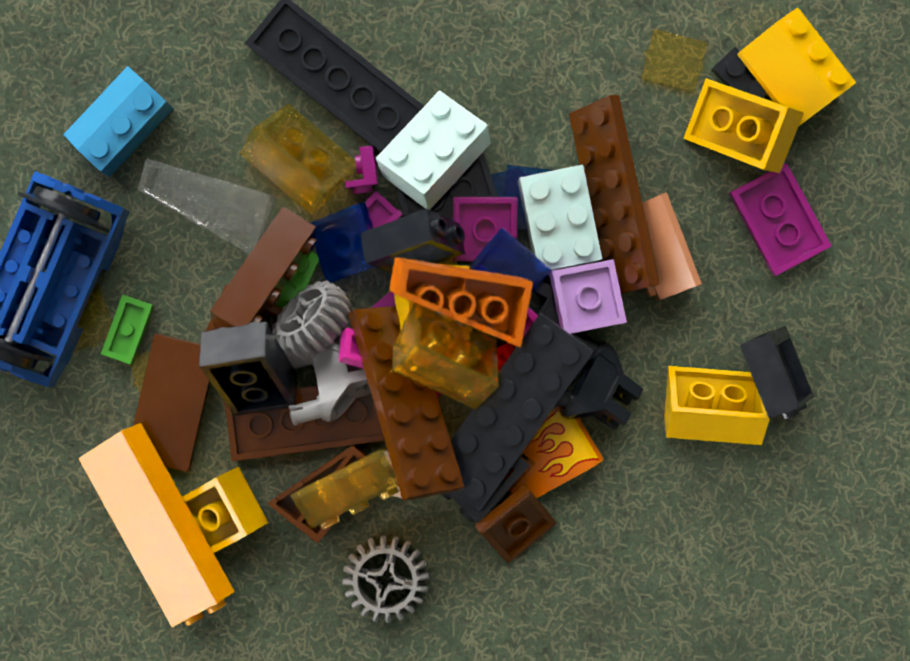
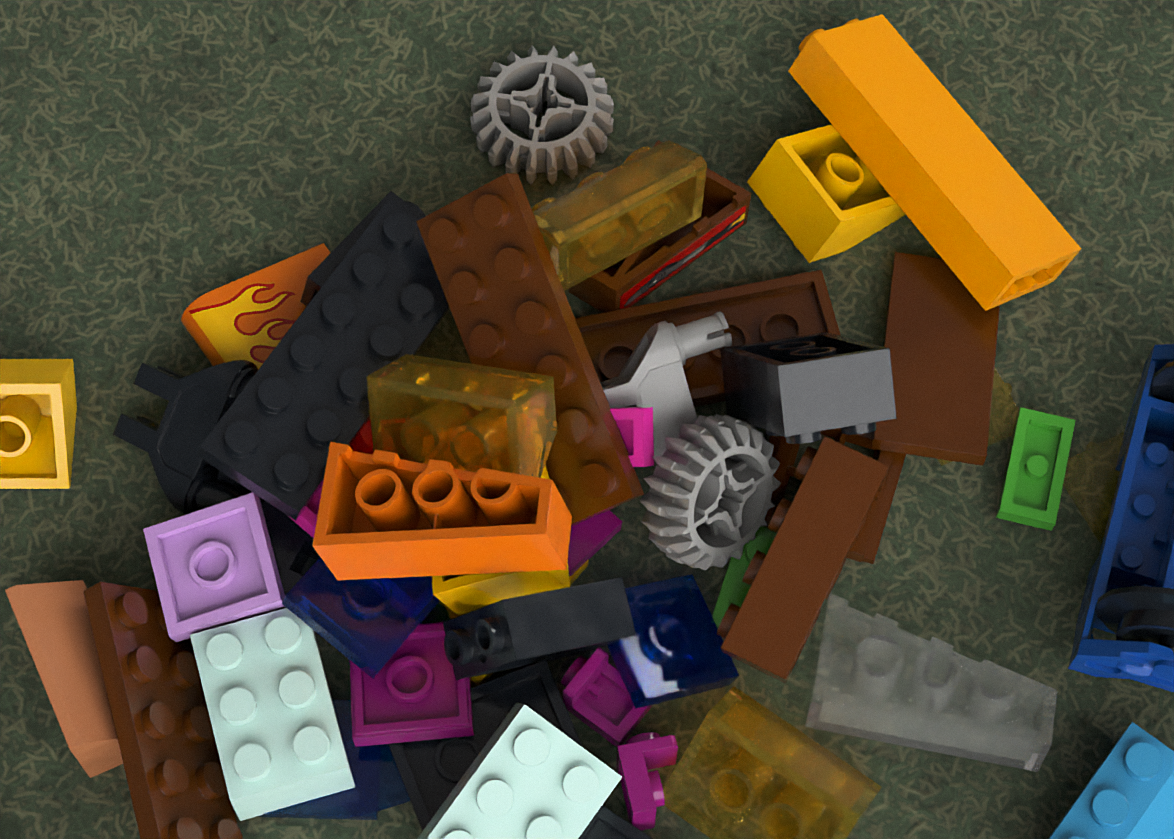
camera: 170 degrees right, 20 degrees down
(515, 524) = (328, 204): reddish brown tile -> none

